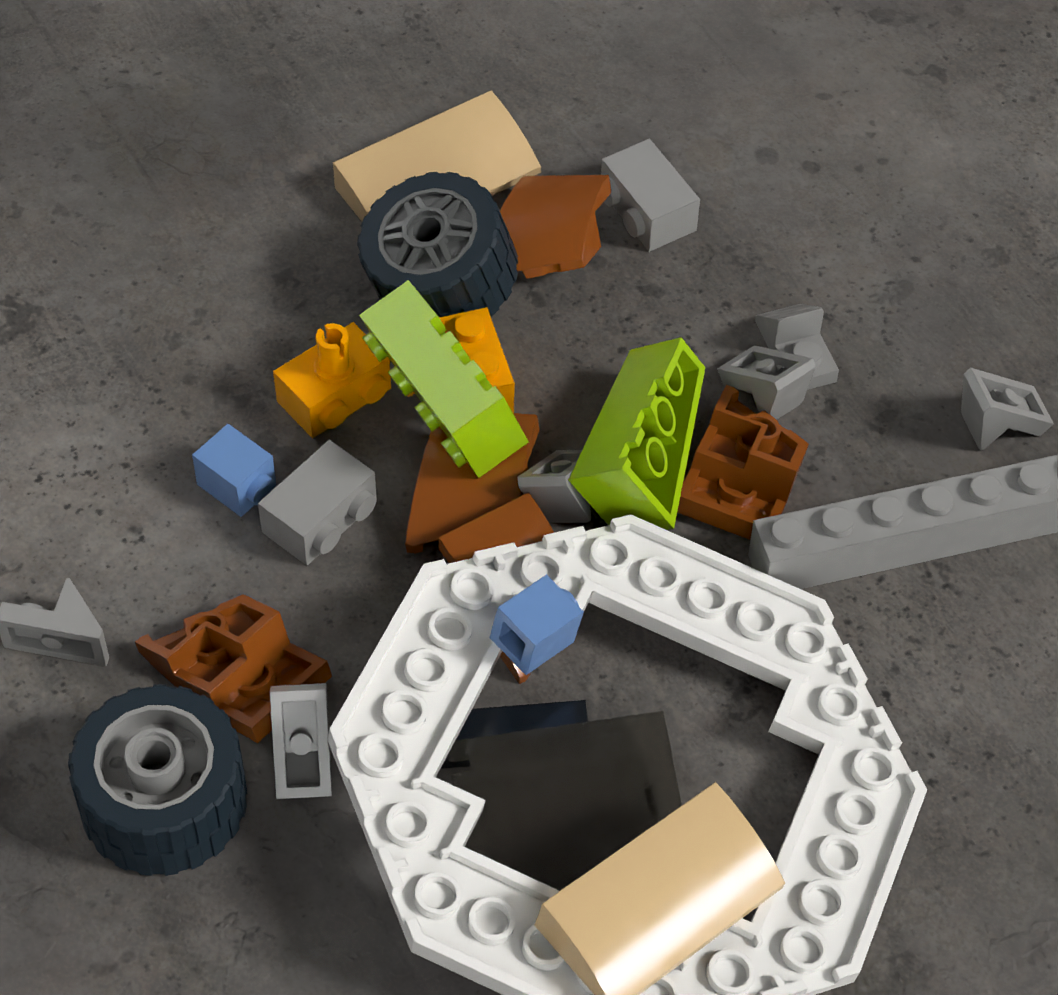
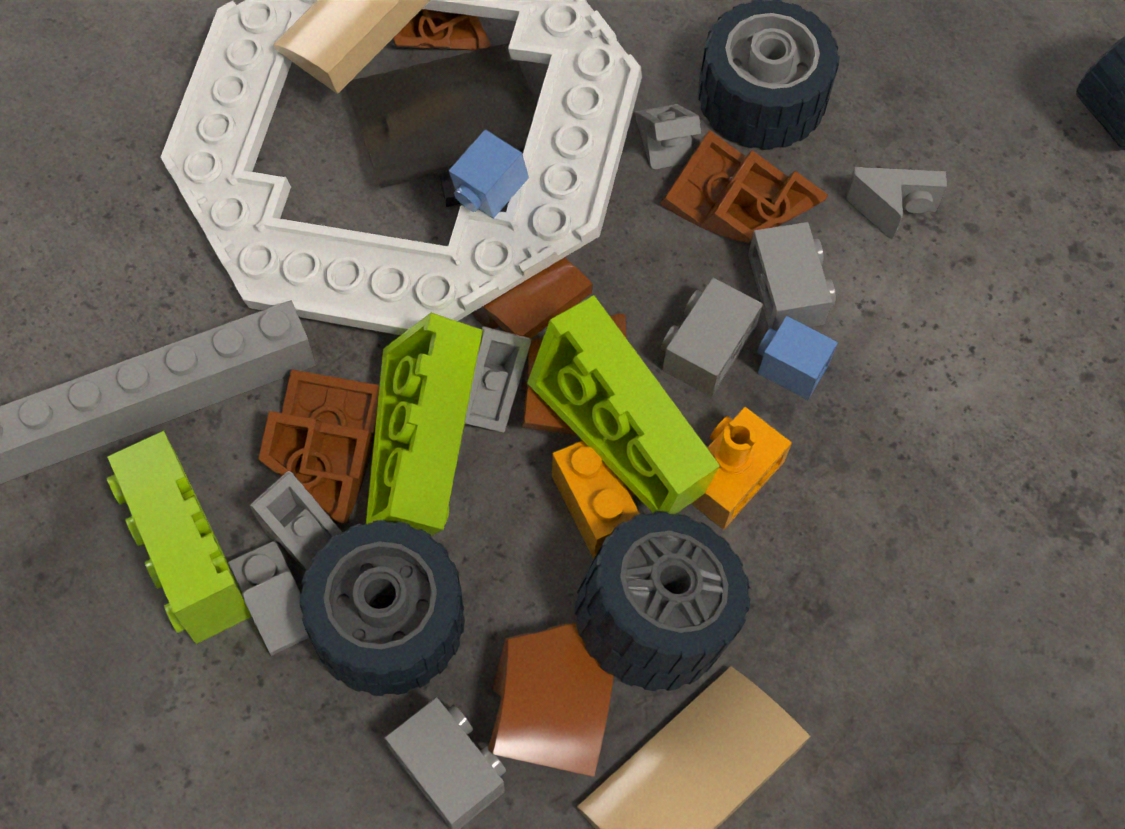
camera: 170 degrees right, 10 degrees up
(211, 550) = (791, 275): none -> light grey brick
(693, 283) = (378, 569): none -> wheel
(887, 379) = (177, 538): none -> lime wedge
(998, 403) = (55, 528): light grey slope -> none

